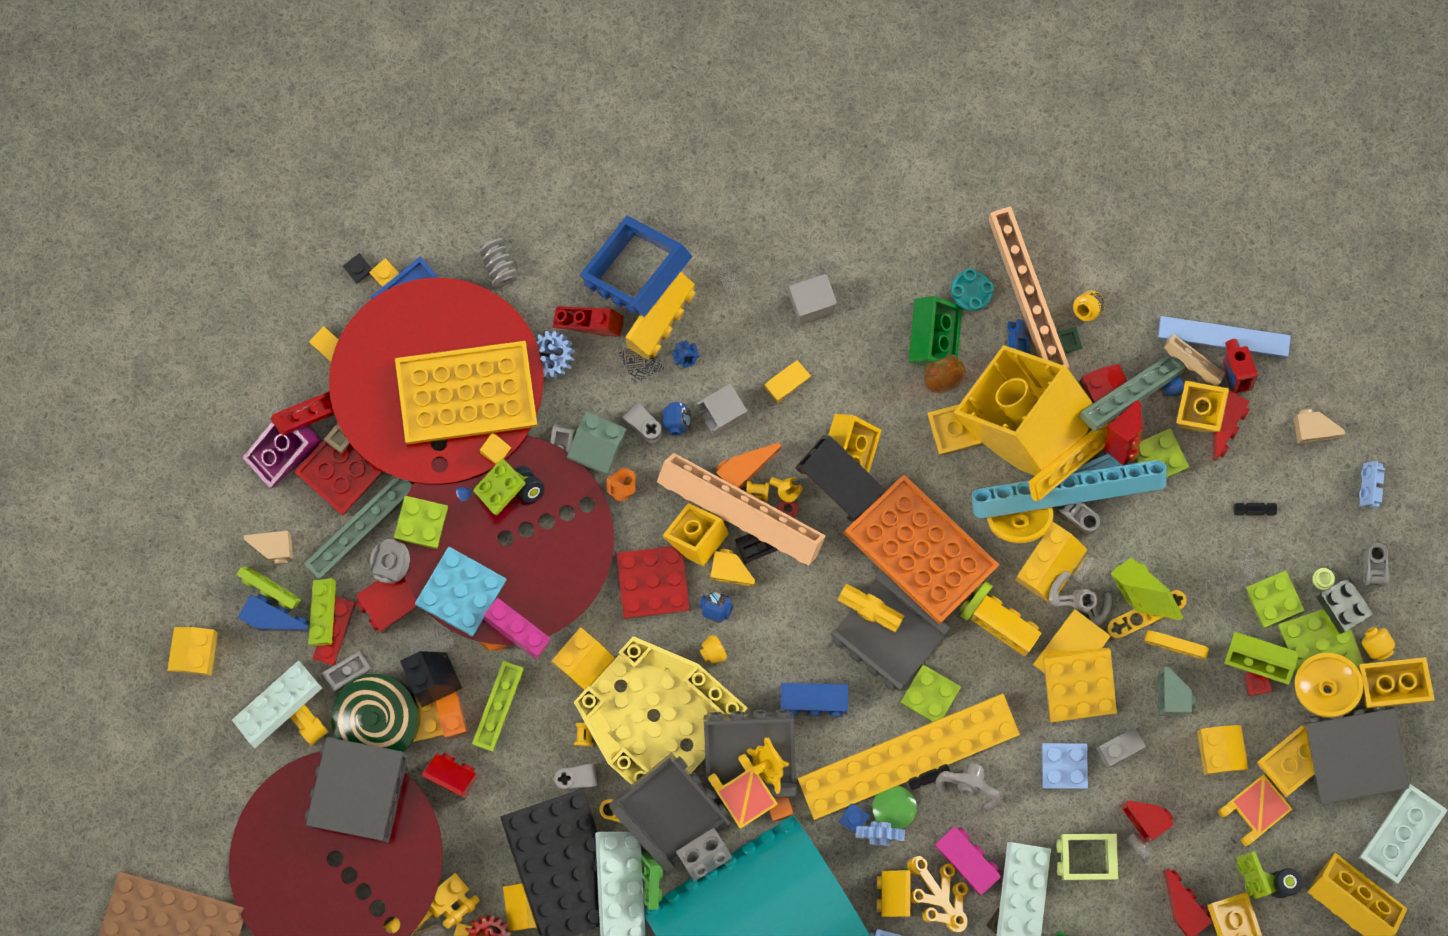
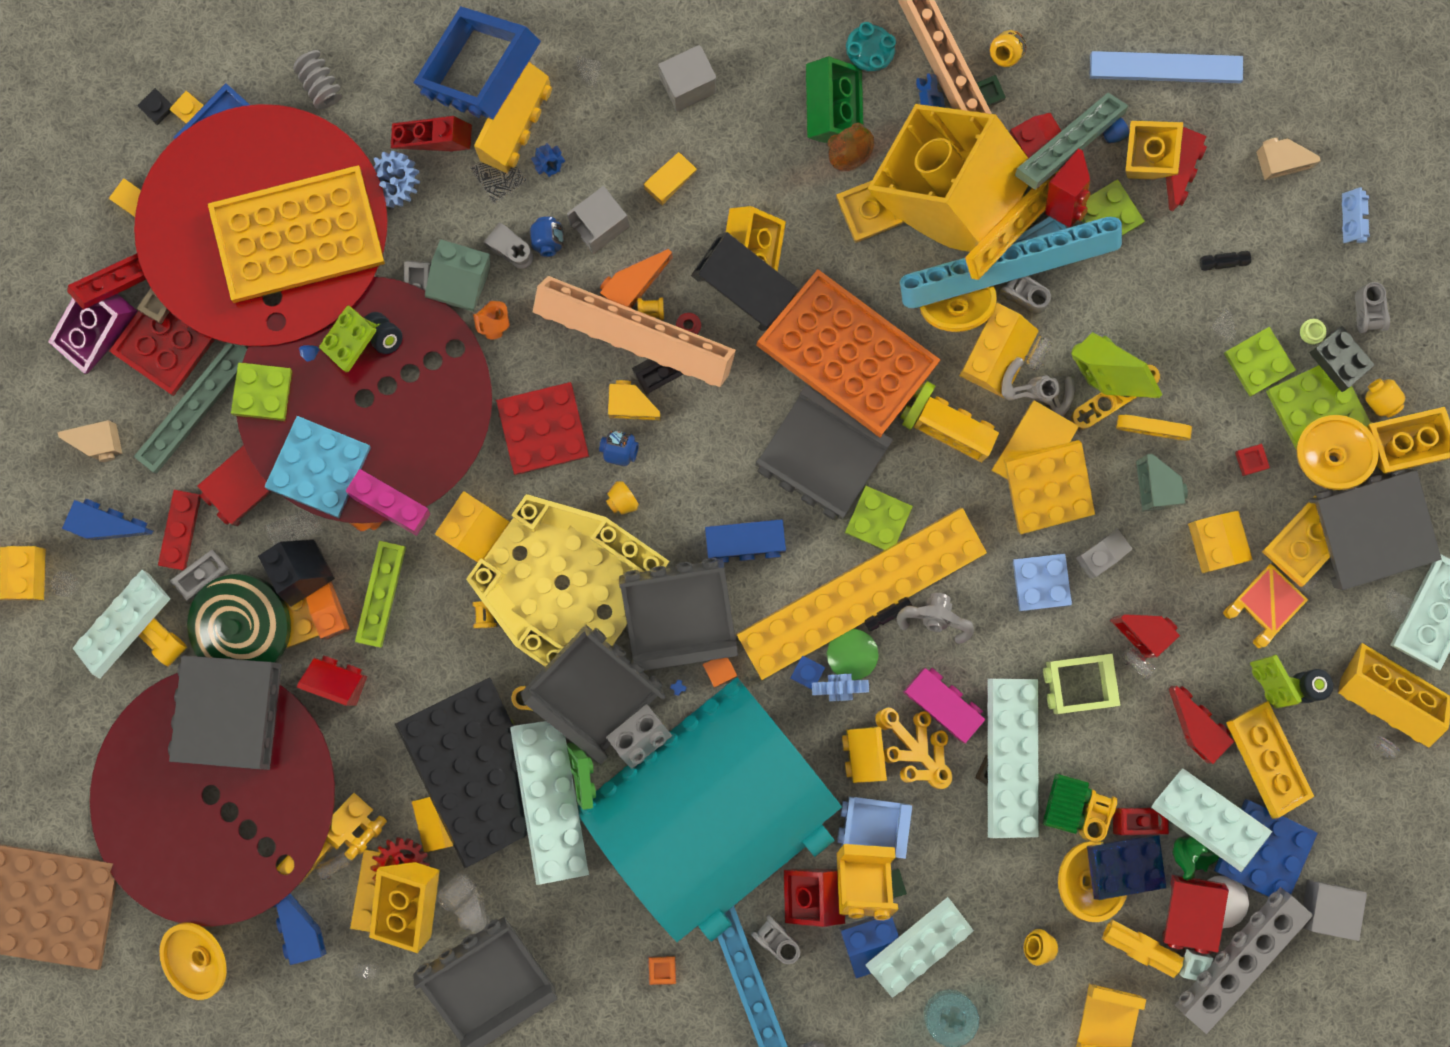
camera: 10 degrees left, 5 degrees up
(269, 588) = (96, 489): lime plate -> none
(322, 612) = (161, 510): lime plate -> none
(389, 561) = (230, 441): light grey tile -> none
(495, 448) = (337, 295): yellow slope -> none
(581, 777) = (485, 663): light grey piece -> none
(696, 534) = (586, 366): yellow slope -> none
(745, 795) = (679, 662): coral flag -> none
(768, 764) = (700, 624): yellow piece -> none
(786, 489) = (684, 303): yellow piece -> none
(870, 608) = (797, 428): yellow piece -> none
(1194, 360) = (1136, 97): tan plate -> none
(1239, 367) = (1190, 98): red torso -> none
(1261, 657) = (1255, 430): lime brick -> none

